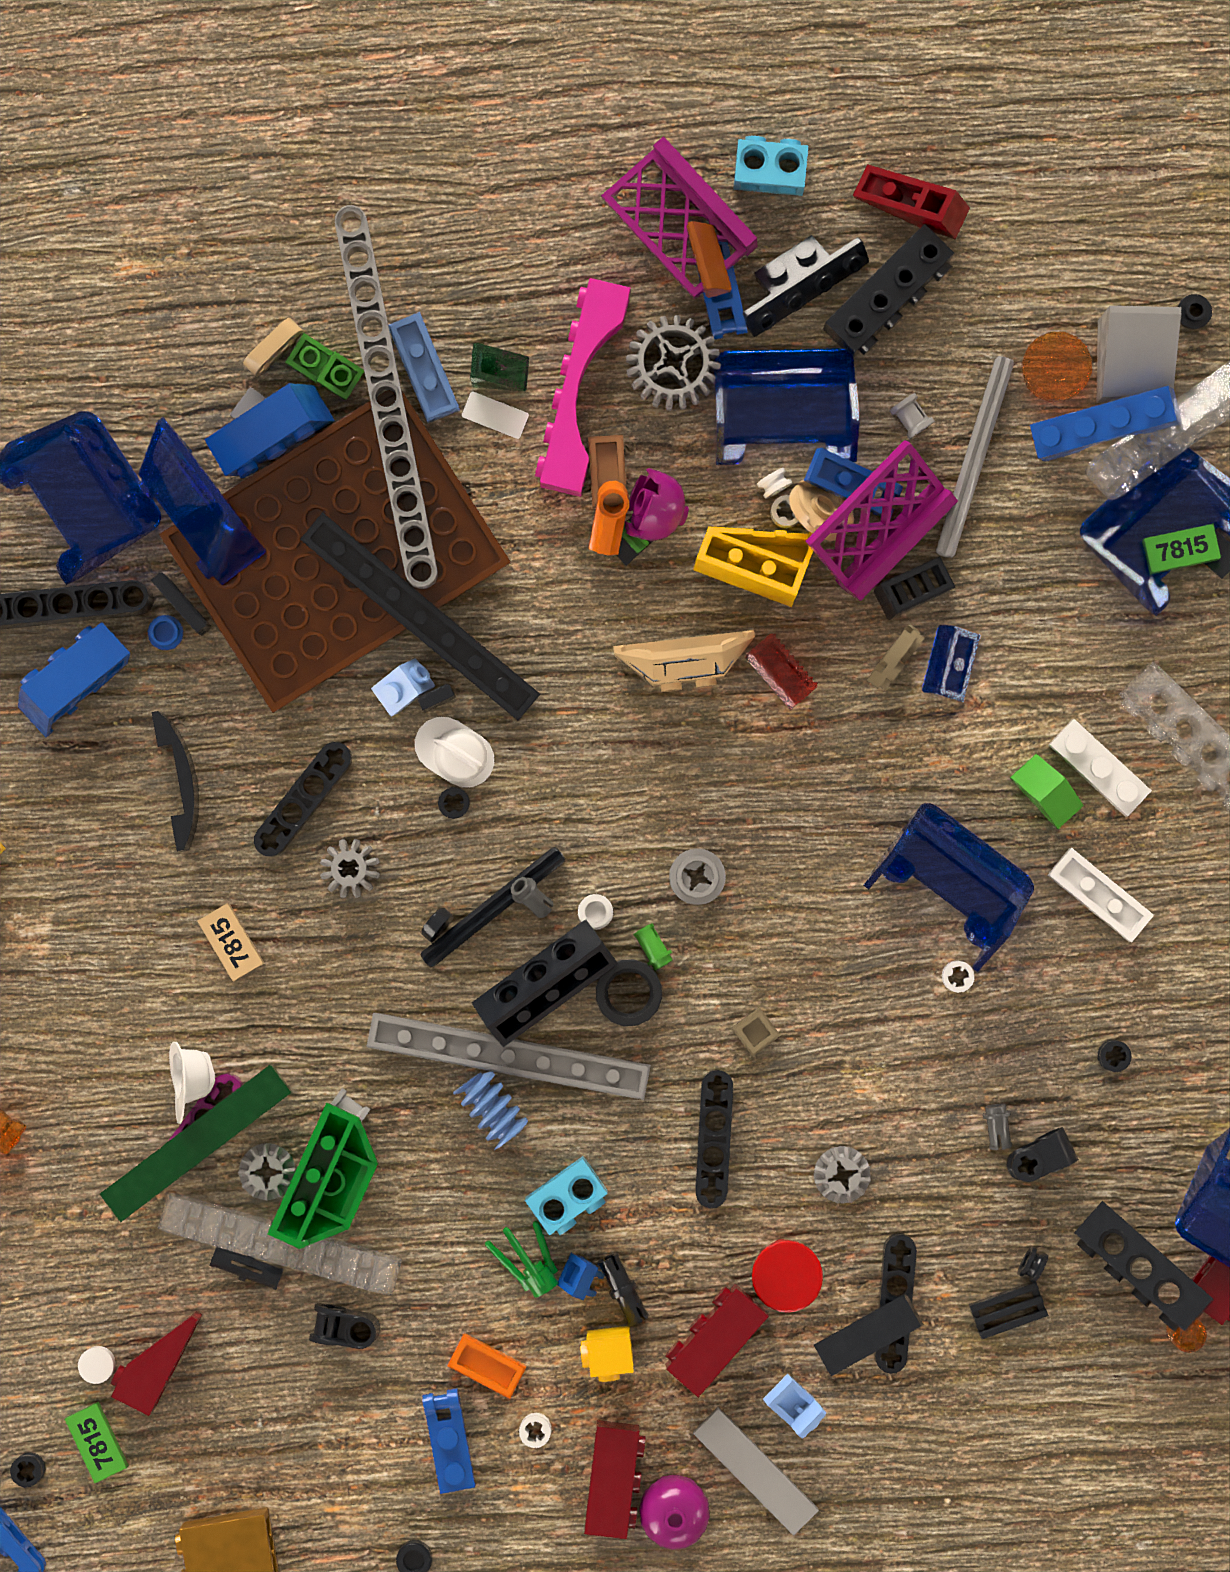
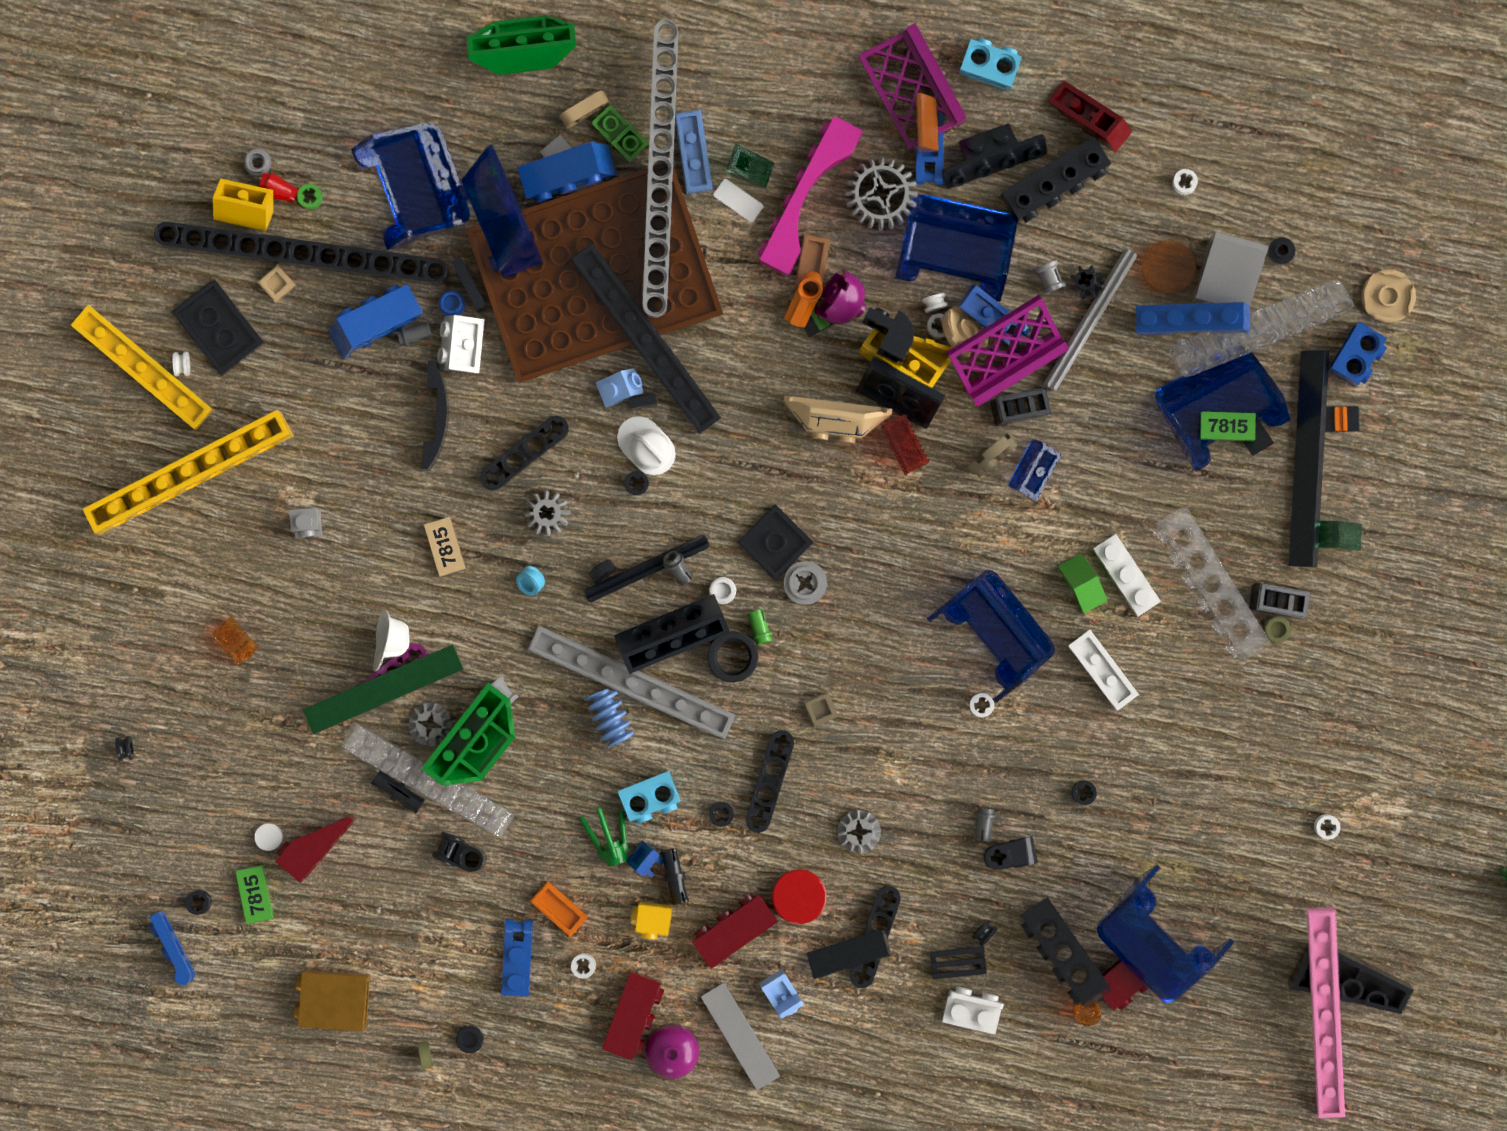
camera: 10 degrees right, 0 degrees up
(47, 955) = (306, 522): none -> light grey brick
(126, 683) = (413, 334): none -> dark grey pin
(173, 284) = (521, 44): none -> green wedge
(188, 681) = (460, 344): none -> white bracket
(349, 959) = (530, 580): none -> medium azure tile
(647, 834) = (775, 542): none -> black tile
(660, 1184) = (721, 822): none -> black bush
(739, 535) = (898, 333): none -> black brick
(759, 607) = (900, 392): none -> black tile
(954, 418) = (1080, 284): none -> black gear
(1041, 1367) = (972, 1011): none -> white bracket
(1061, 257) = (1192, 185): none -> white bush

